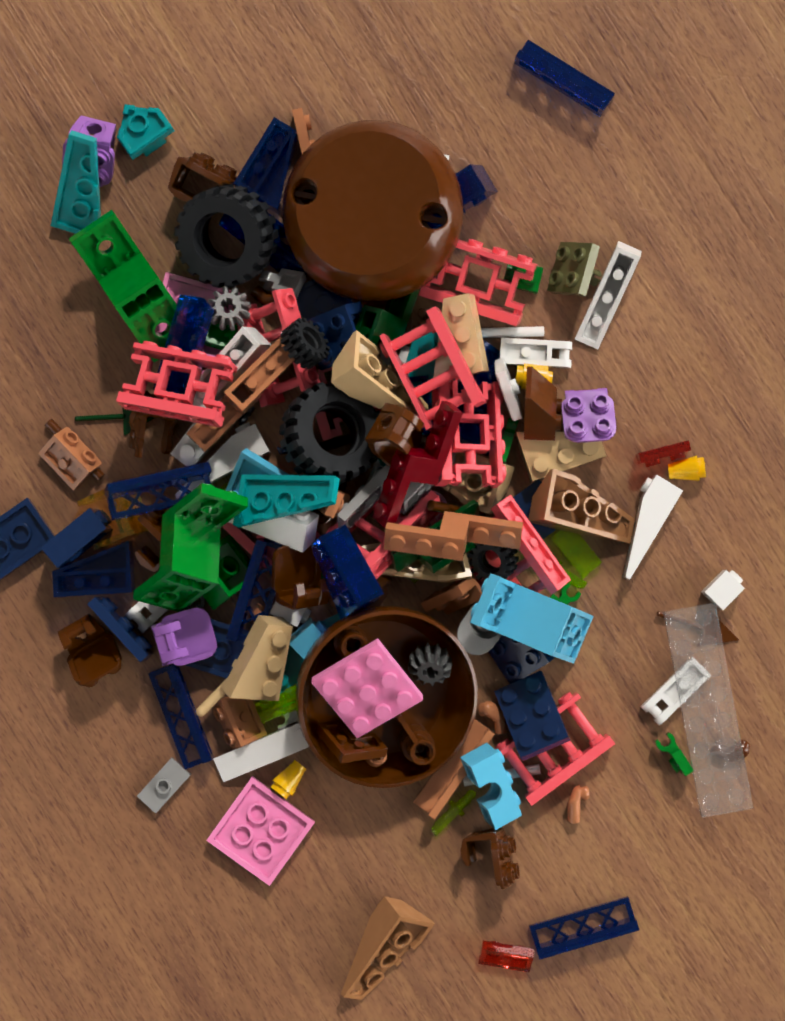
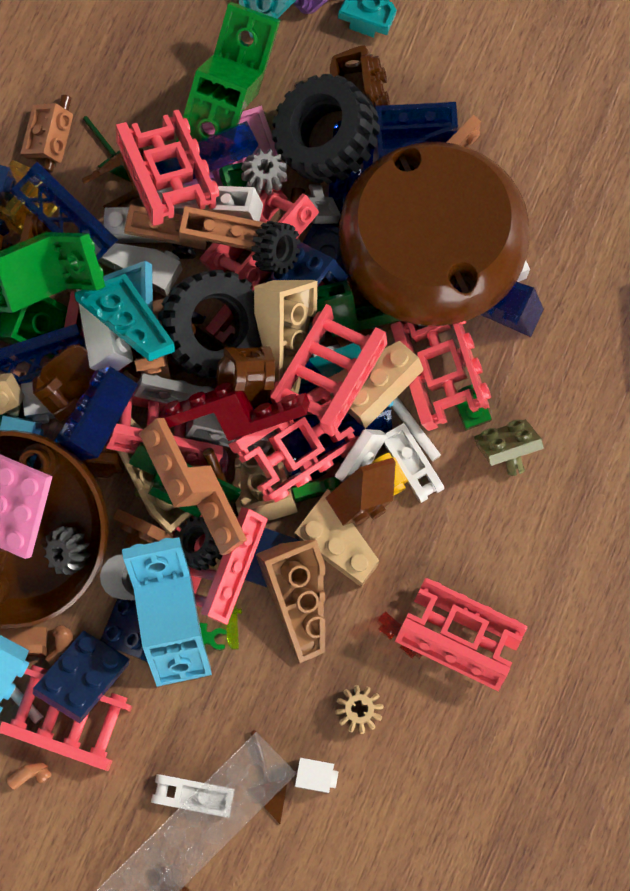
camera: 55 degrees right, 10 degrees down
(576, 552) = (258, 619): clear neon green panel -> none
(588, 415) = (386, 541): medium lavender piece -> none
(608, 294) = (509, 490): white slope -> none
(653, 509) = (346, 661): white slope -> none
(678, 760) = (129, 842): green plate -> none
(688, 469) = (403, 669): yellow cone -> none
(694, 514) = (365, 702): none -> tan gear
(706, 421) = (453, 650): none -> coral fence

